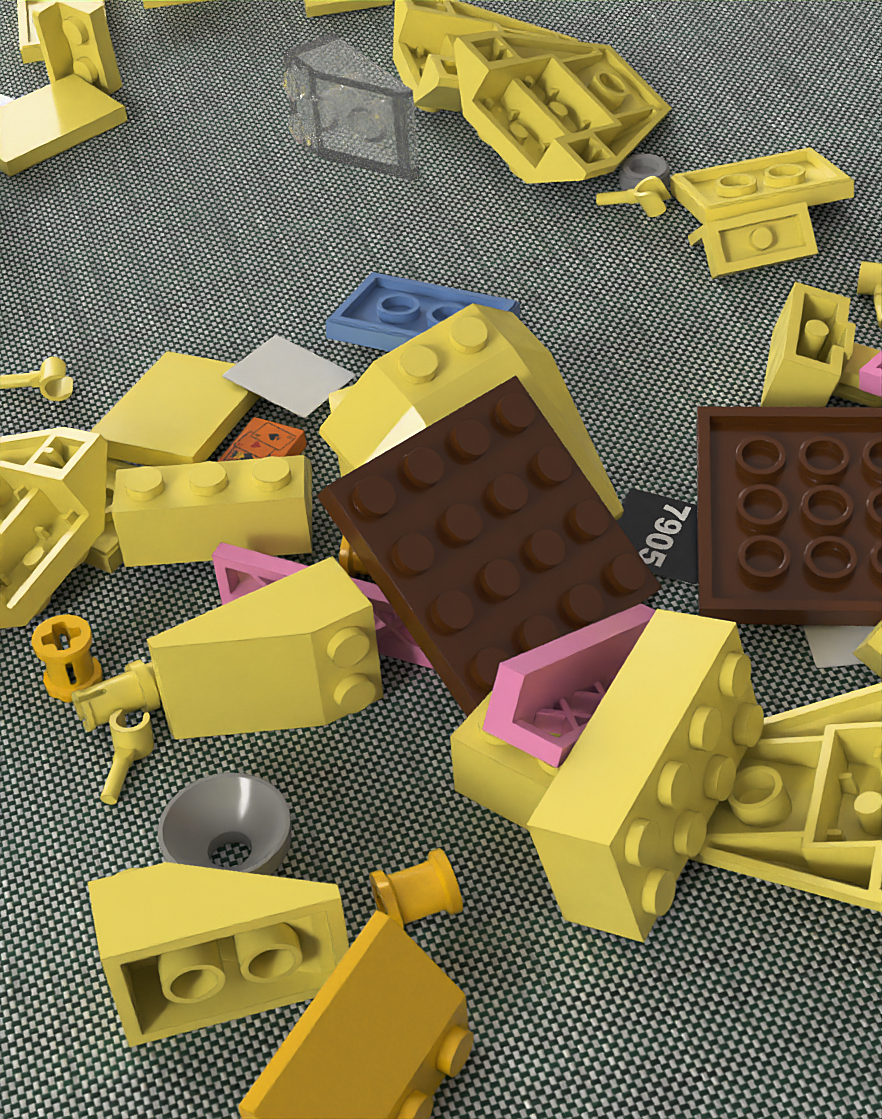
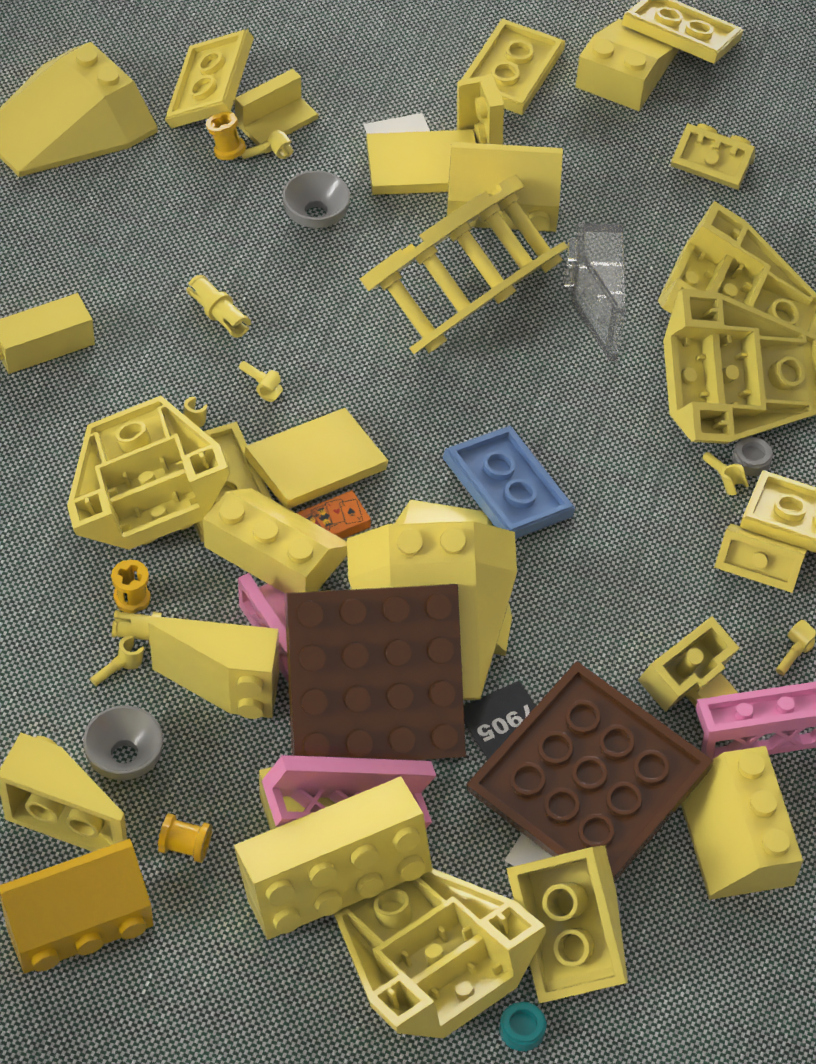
camera: 30 degrees right, 10 degrees up
(156, 105) = (457, 227): none -> light yellow fence
(158, 86) = (483, 166): none -> light yellow slope
(289, 376) = (397, 472): white sticker -> none

